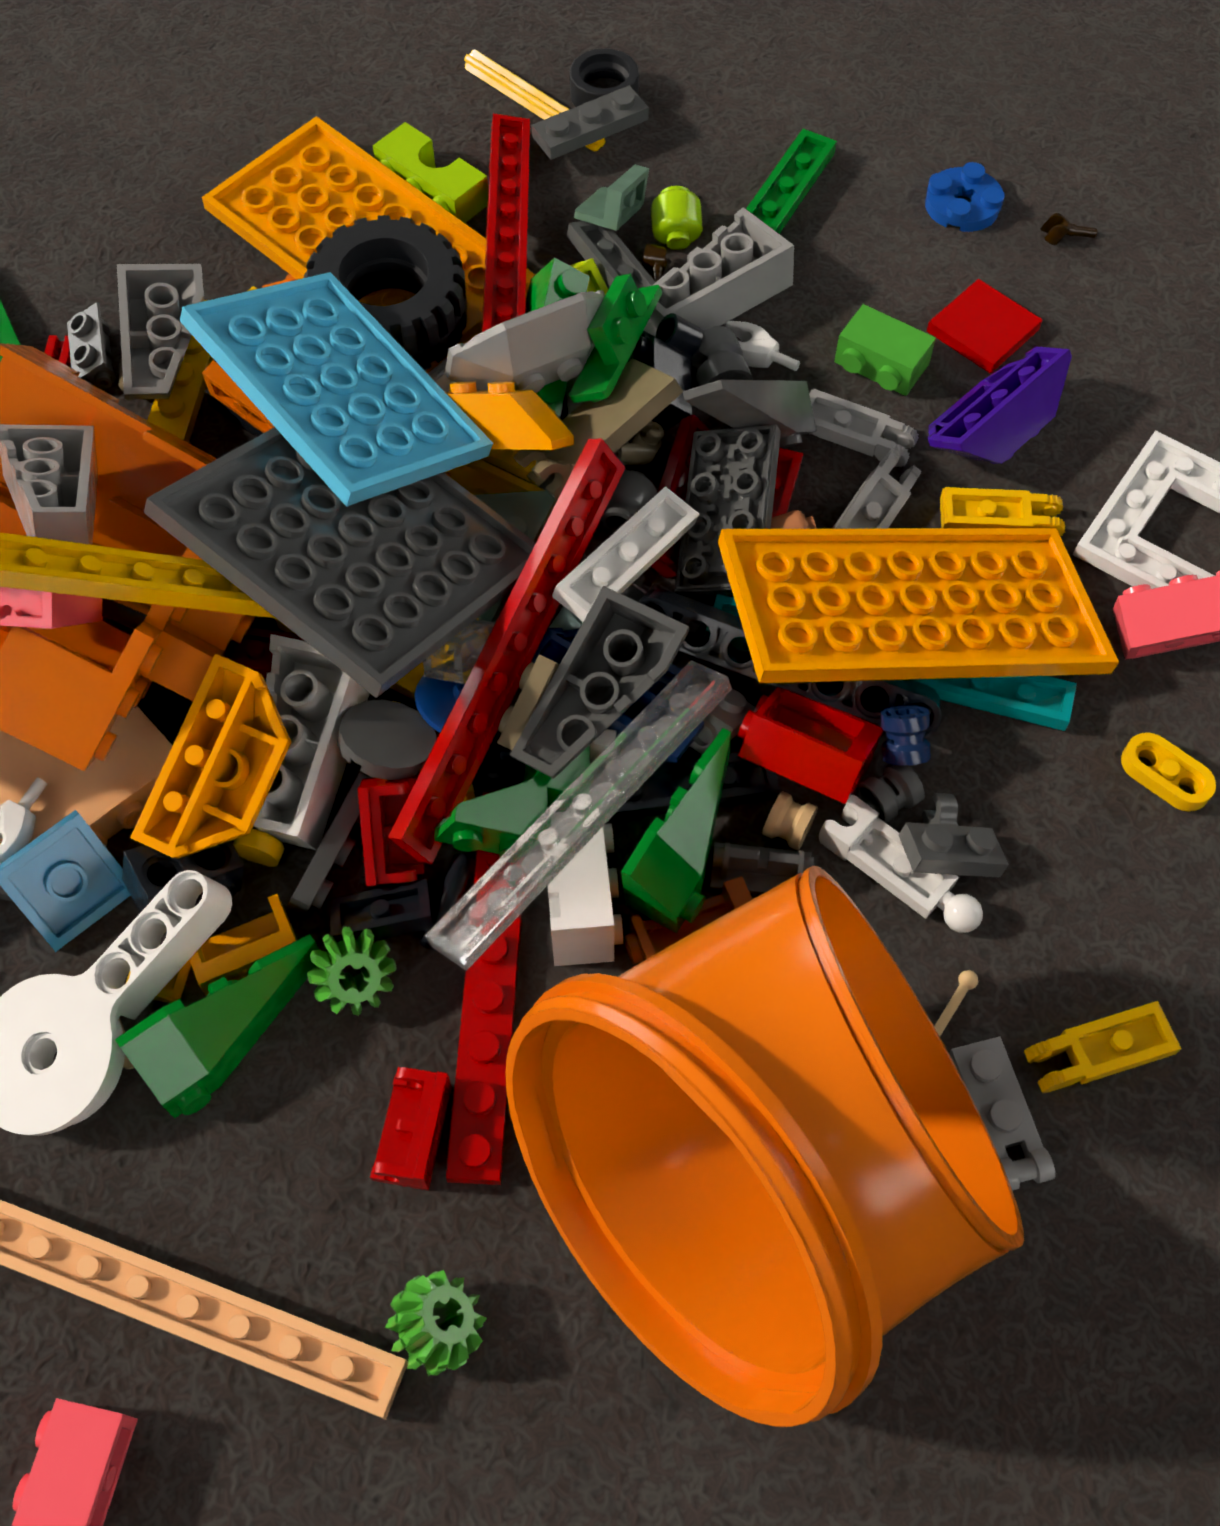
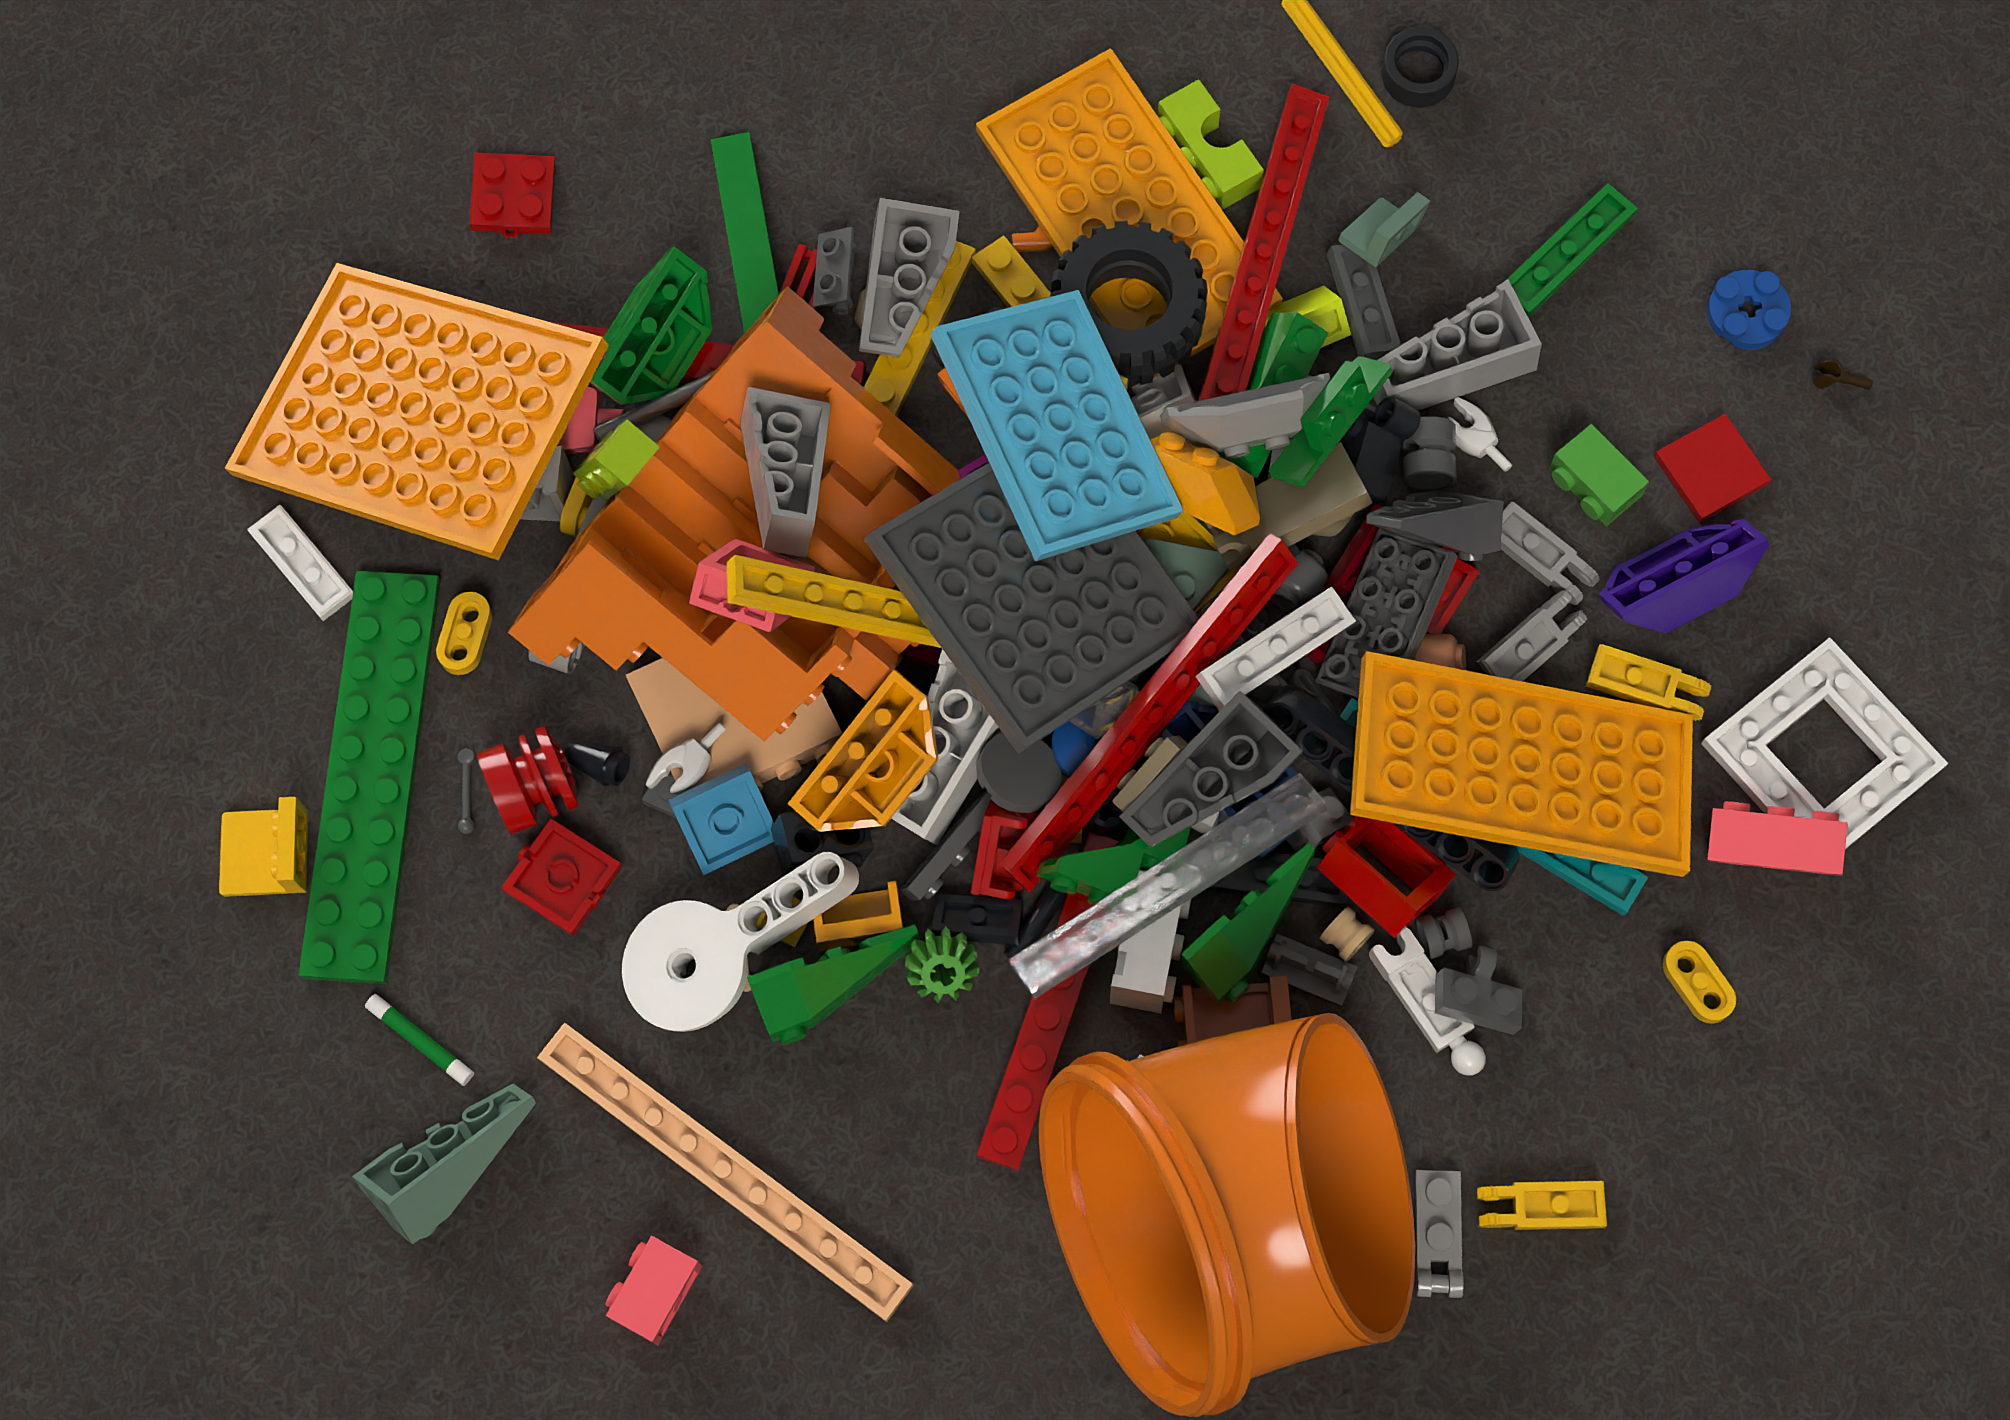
camera: 20 degrees right, 10 degrees up
(259, 848) = (892, 833): yellow tile -> none
(412, 1128) = (959, 1107): red hinge -> none
(431, 1344) = (942, 1263): bright green gear -> none
(590, 122) = (1388, 122): dark grey plate -> none
(655, 259) = (1409, 304): dark brown hand -> none
(676, 217) = (1442, 262): lime head -> none
(905, 734) = (1470, 887): dark blue wheel -> none
(967, 981) = (1452, 1116): tan hinge -> none

